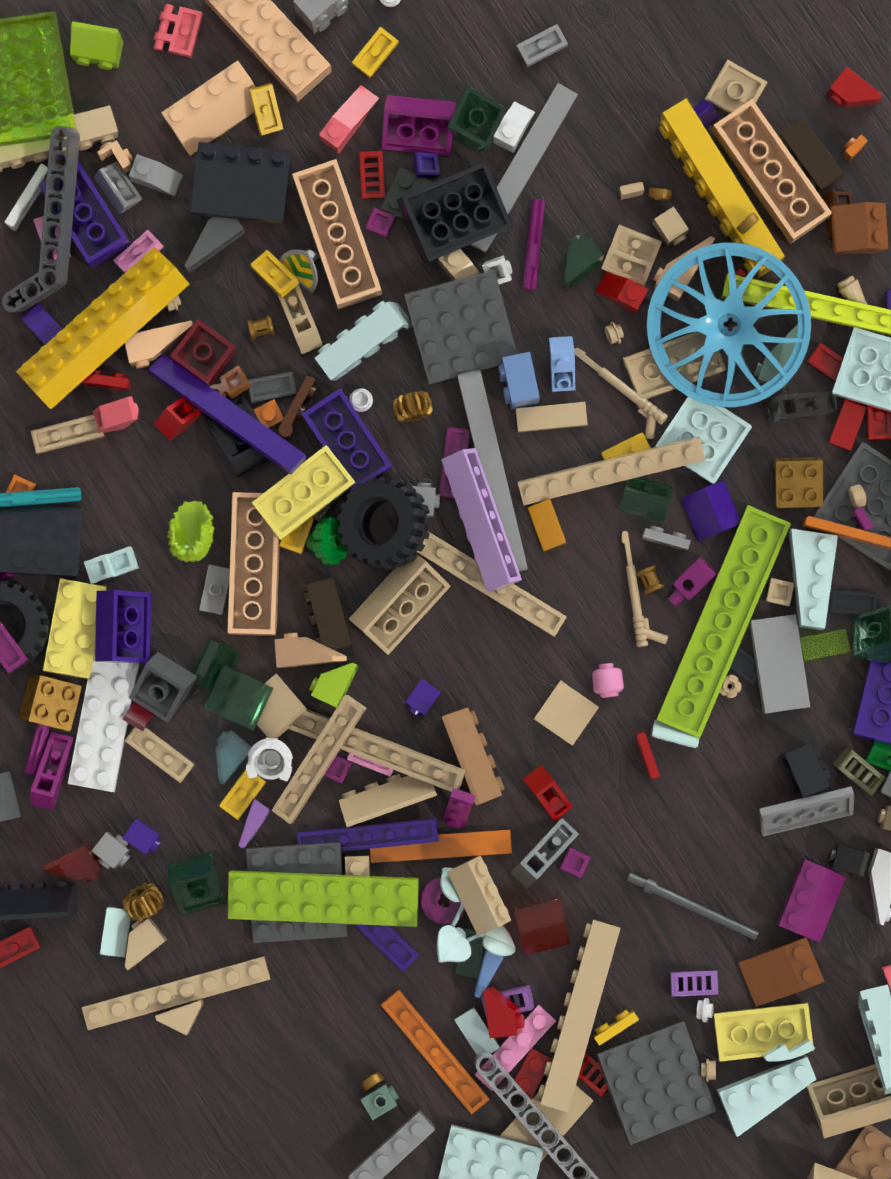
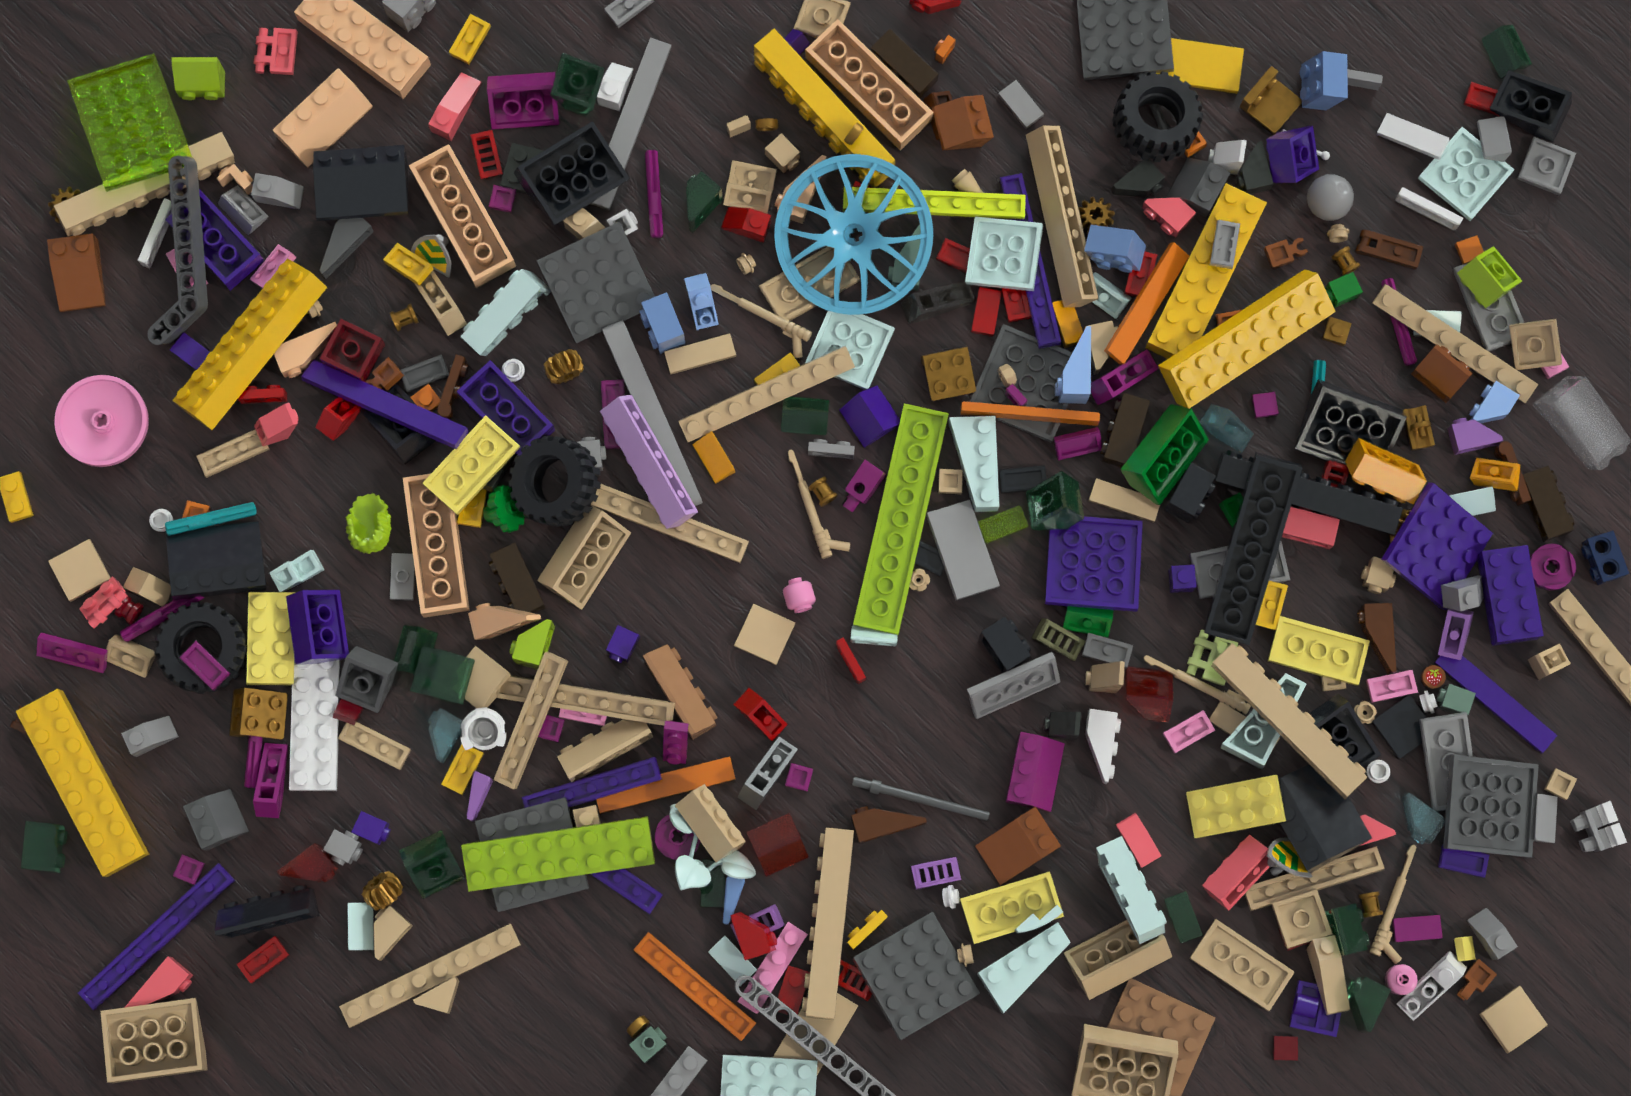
camera: 15 degrees left, 5 degrees down
(265, 109) = (373, 110): yellow plate -> none
(426, 165) = (537, 136): dark purple tile -> none
(642, 923) = (879, 823): none -> reddish brown slope

